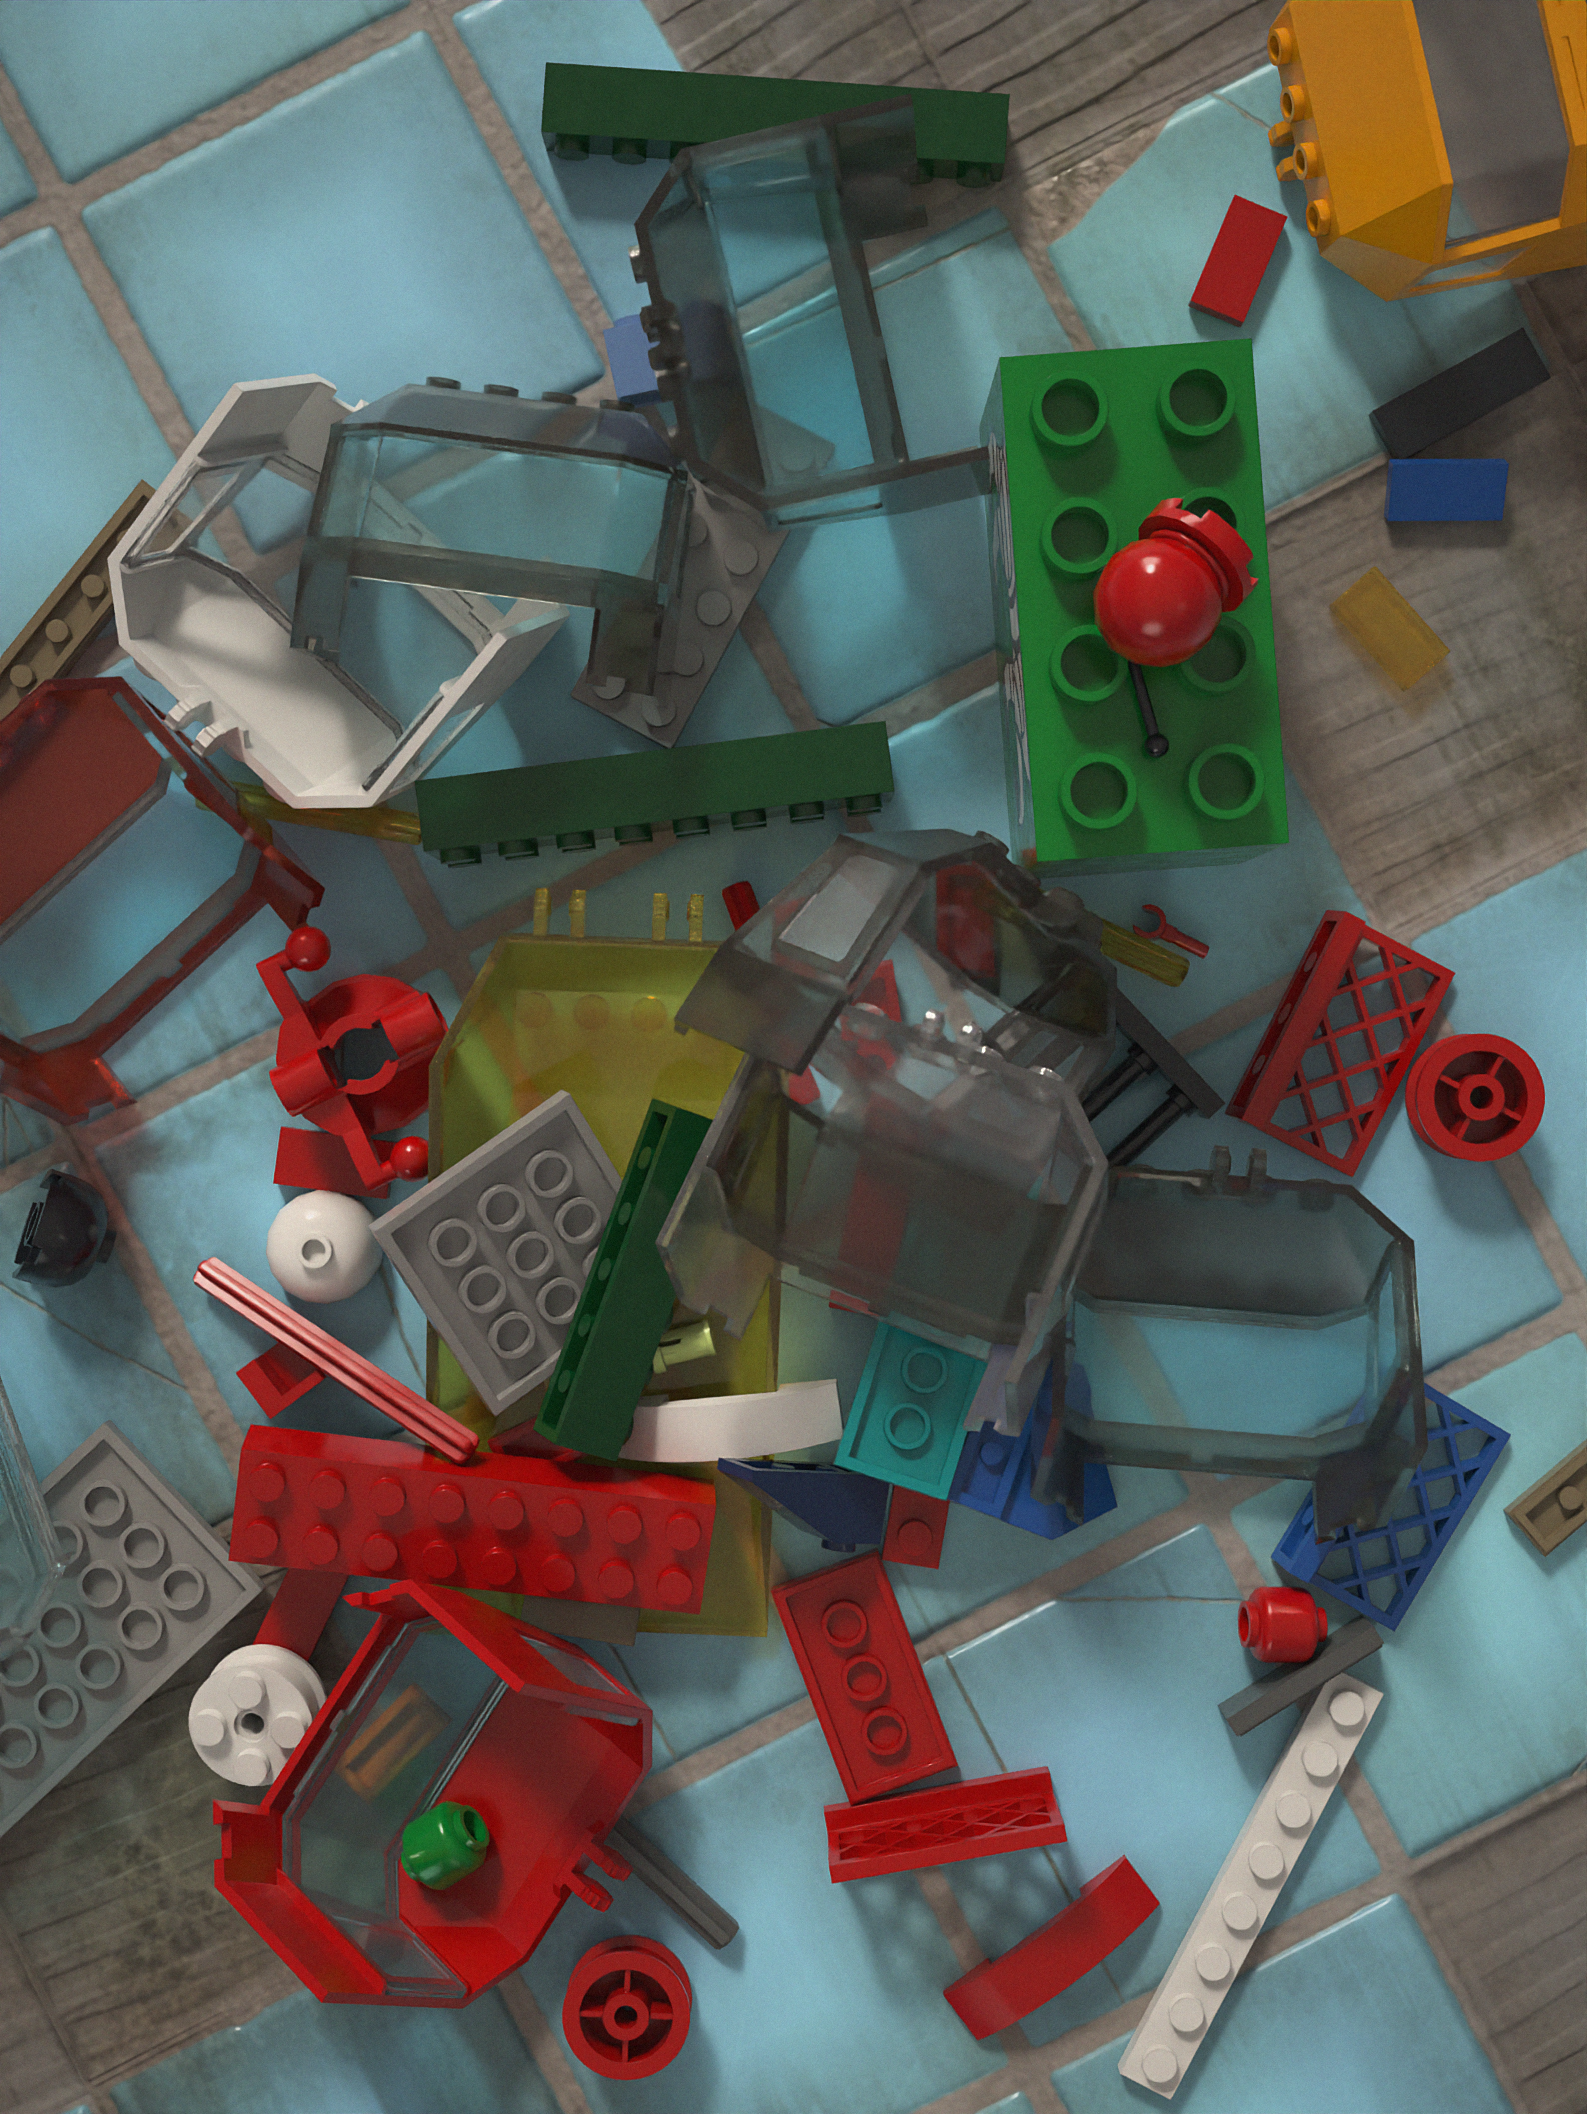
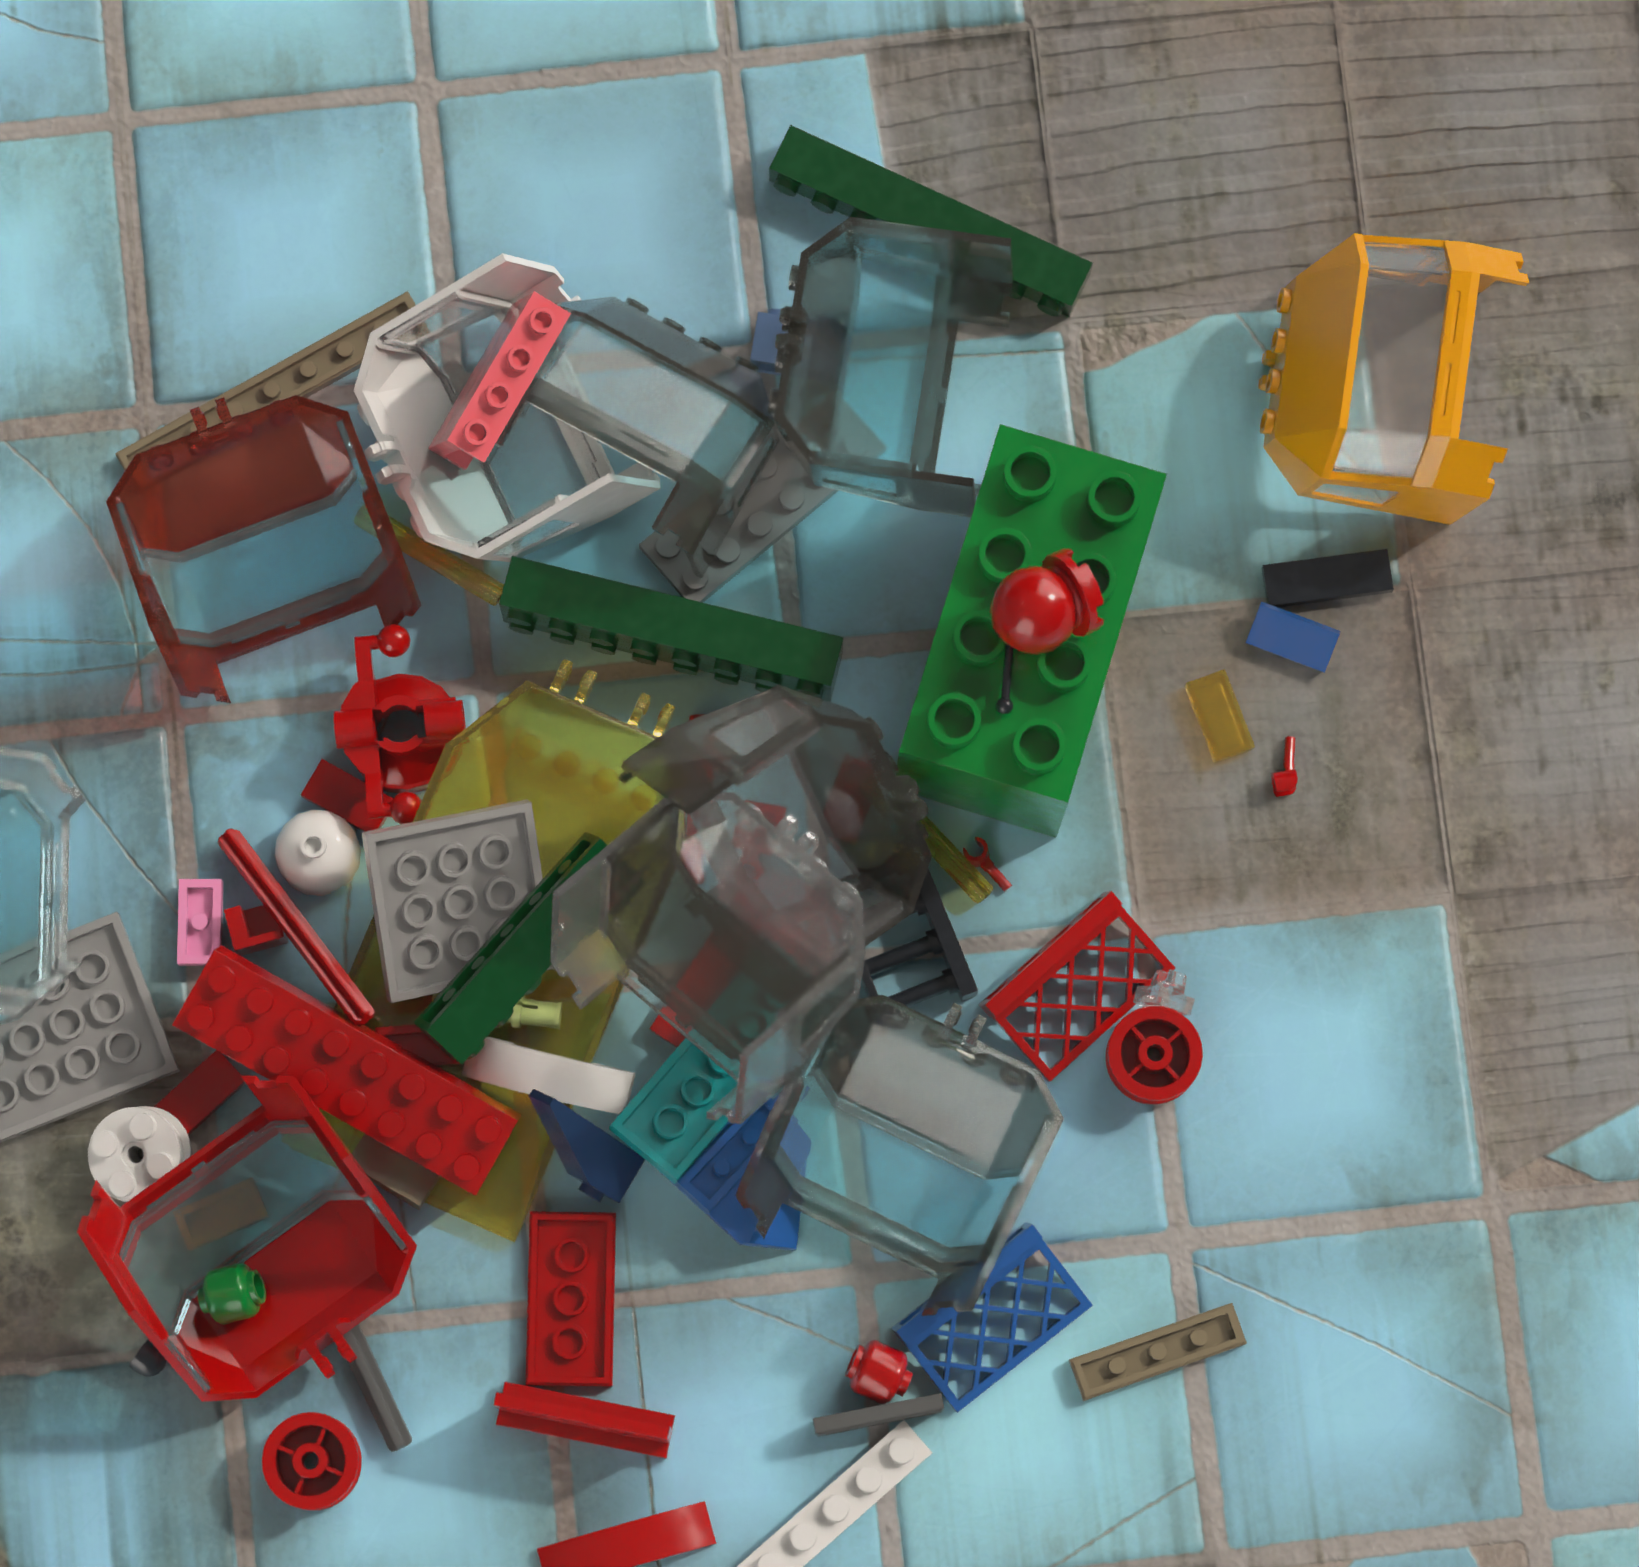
camera: 20 degrees right, 10 degrees down
(64, 1233) = (144, 771): black cylinder -> none
(212, 1392) = (199, 920): none -> bright pink plate
(304, 554) = (499, 380): none -> coral panel
(914, 1529) = (650, 1204): red plate -> none
(1237, 261) = (1209, 431): red tile -> none
(1458, 1011) = (1165, 991): none -> clear tile
(1507, 676) = (1285, 781): none -> red hand

